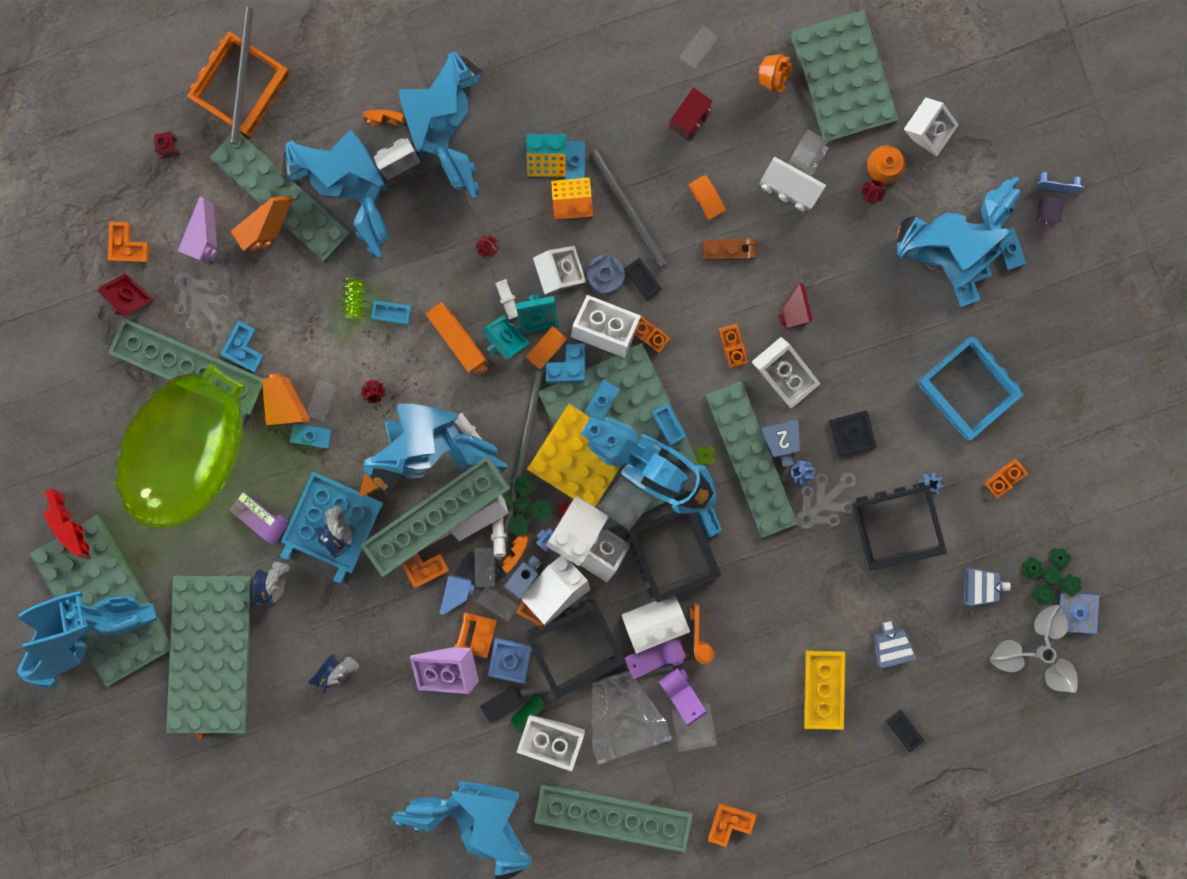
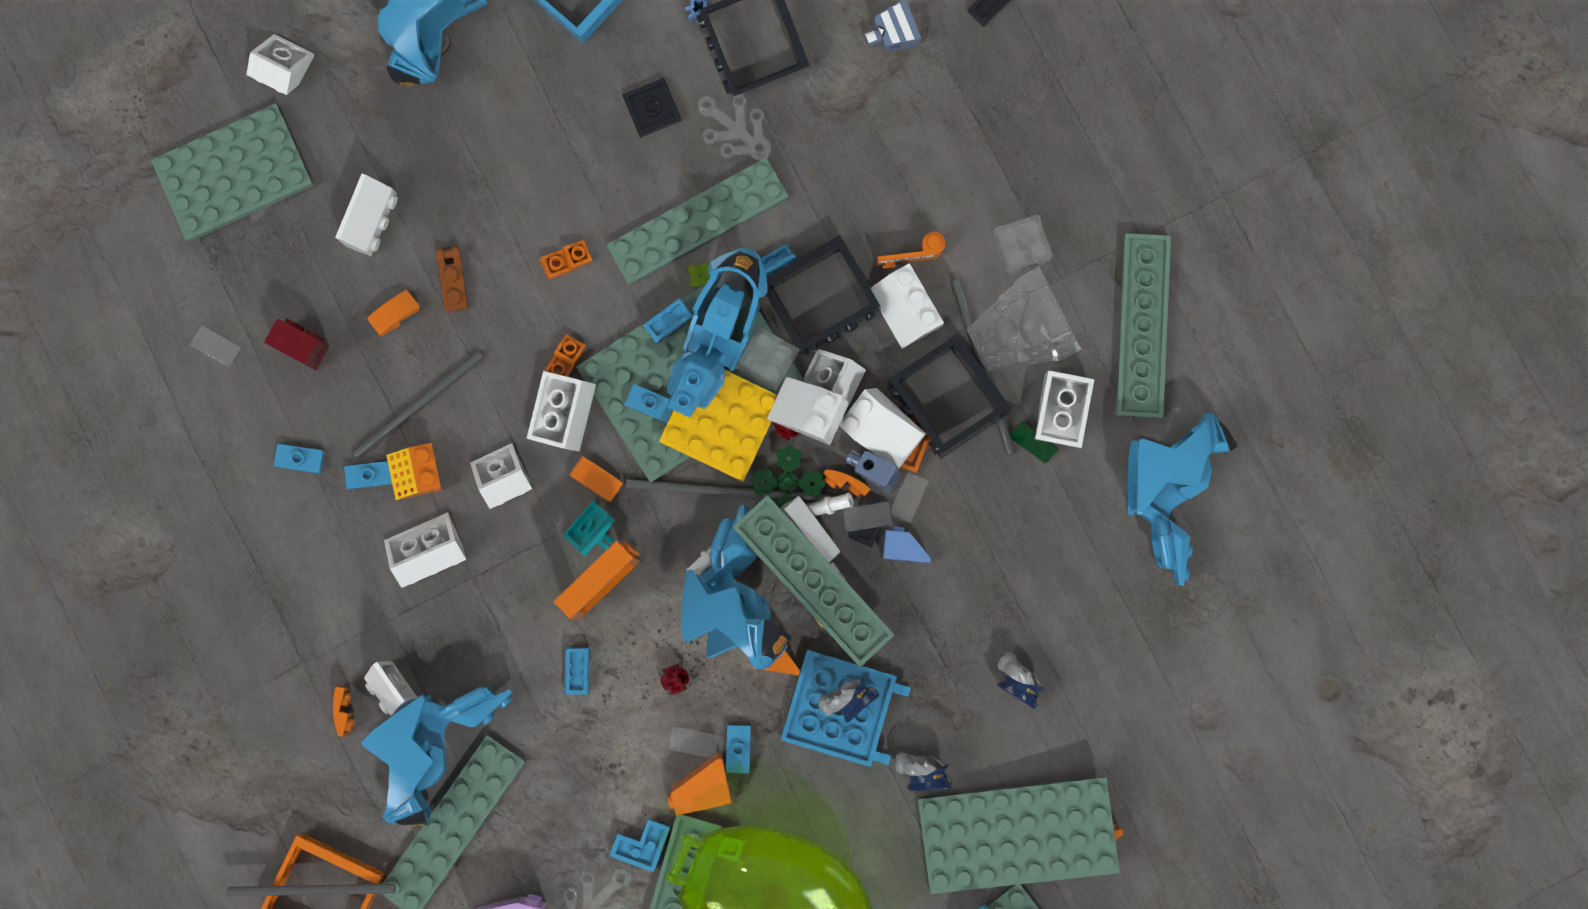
camera: 105 degrees left, 5 degrees down
(259, 519) = (846, 798): medium lavender door -> none
(262, 225) = (489, 838): orange slope -> none
(353, 298) = (565, 718): clear neon green piece -> none
(422, 572) = (883, 589): orange plate -> none
(438, 113) = (332, 645): dark azure piece -> none
(445, 670) = (997, 547): lavender slope -> none
(482, 634) = (950, 510): orange plate -> none
(487, 246) = (483, 565): dark red gear -> none
(501, 704) = (1028, 476): black tile -> none
(506, 199) = (424, 550): none -> white slope
(507, 298) = (543, 533): white pin -> none
(510, 660) = (975, 472): medium blue plate -> none
(537, 314) = (556, 493): teal tile -> none
(543, 537) = (824, 450): medium blue gear -> none
(546, 155) = (365, 509): slope -> none
(570, 371) = (619, 445): dark azure plate -> none
(596, 105) = (299, 458): none -> dark azure plate
(605, 274) = (499, 421): sand blue tile -> none
(642, 278) = (499, 376): black tile -> none
(655, 657) = (946, 301): medium lavender door -> none
(683, 696) = (987, 261): medium lavender door -> none
(728, 819) = (1124, 191): orange plate -> none
(774, 72) = (236, 252): orange cone -> none
(782, 440) = (670, 186): sand blue torso -> none
(786, 372) = (589, 193): white slope -> none
(796, 309) = (512, 190): dark red slope -> none
(802, 472) = (704, 158): medium blue gear -> none
(808, 151) = (326, 200): clear brick -> none
(824, 690) = (956, 100): yellow plate -> none
(873, 191) = (364, 120): dark red gear -> none
(886, 164) = (330, 110): orange cone -> none

